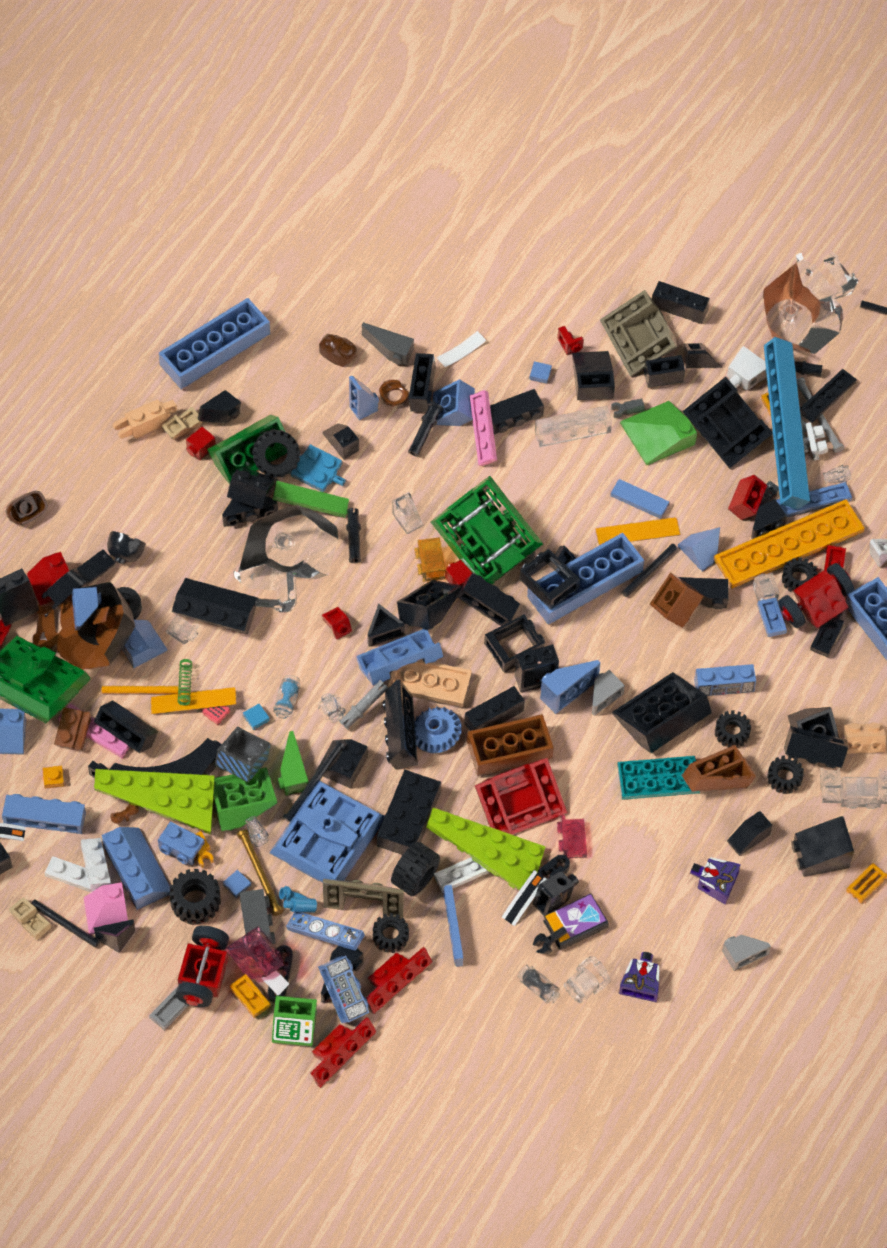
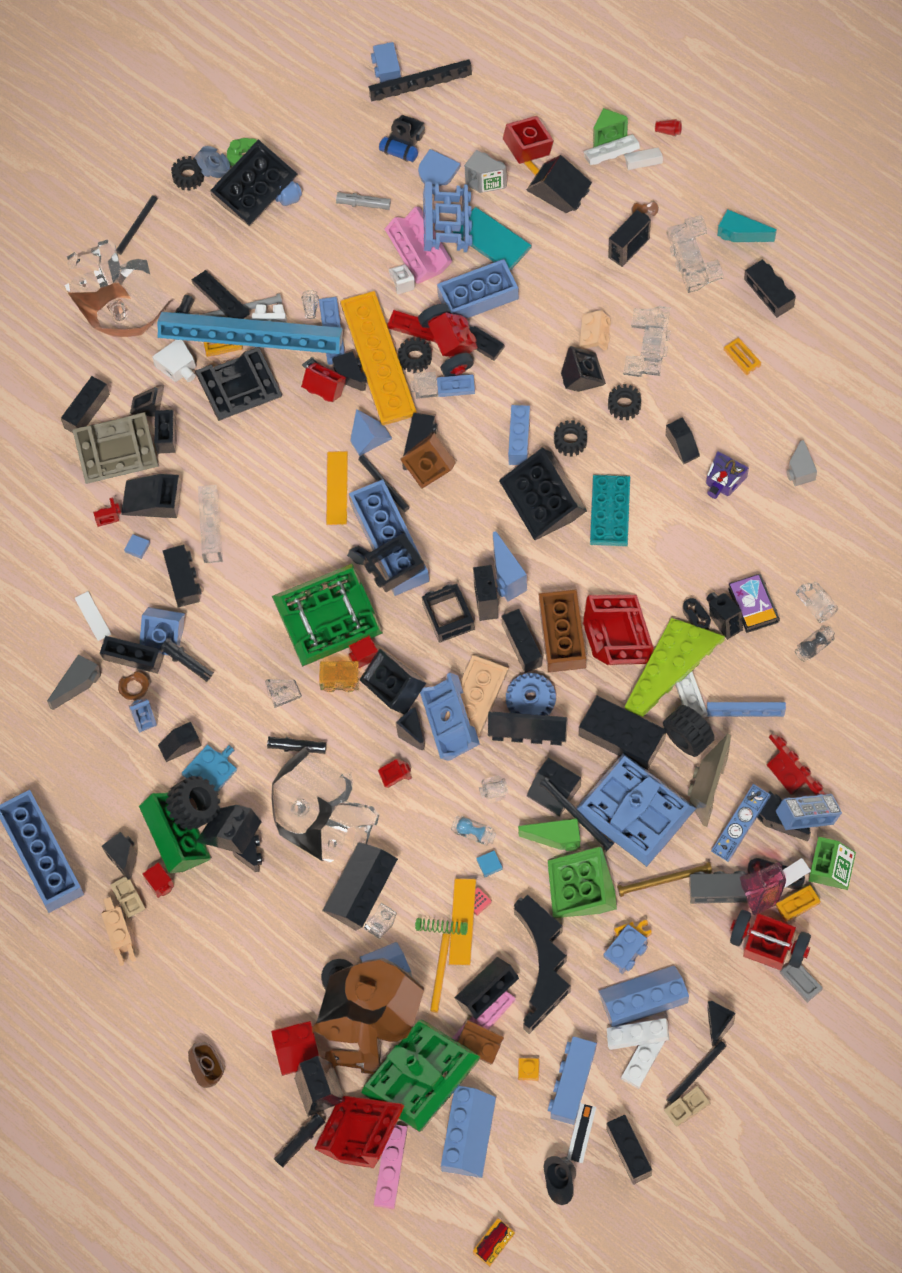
camera: 75 degrees left, 5 degrees up
(78, 577) = (311, 1017): black piece -> none
(84, 605) = (349, 1008): medium blue slope -> none
(105, 906) = (688, 1030): bright pink slope -> none
(124, 548) = (274, 968): black cylinder -> none
(130, 810) = (579, 995): dark orange piece -> none
(170, 795) = (576, 947): lime wing -> none
(199, 910) = (683, 956): black tyre -> none
(236, 883) = (673, 903): medium blue tile -> none
(242, 754) = (536, 877): flat silver container -> none
(257, 833) = (625, 875): clear cone -> none
(297, 901) = (707, 842): dark azure plant -> none
(310, 499) = (250, 776): bright green tile -> none
(337, 349) = (69, 733): reddish brown piece -> none
(339, 1048) = (860, 830): red bracket -> none
(358, 710) = (497, 757): light grey pin -> none
(390, 944) = (751, 757): black tyre -> none
(483, 428) = (197, 604): bright pink tile -> none
(488, 599) = (399, 626): black brick -> none
(523, 898) = (725, 642): sticker -> none
(546, 949) = (772, 626): black bar -> none
(572, 837) = (664, 593): clear pink bracket -> none
(606, 690) = (516, 540): light grey slope -> none
(628, 407) = (196, 471): dark grey bar -> none
(639, 498) = (302, 479): medium blue tile -> none
(641, 979) = (819, 554): torso -> none
(659, 432) = (228, 449): bright green slope -> none
(719, 772) = (617, 452): dark orange wedge -> none
(815, 747) = (605, 368): black brick -> none
(823, 847) = (708, 380): black slope -> none

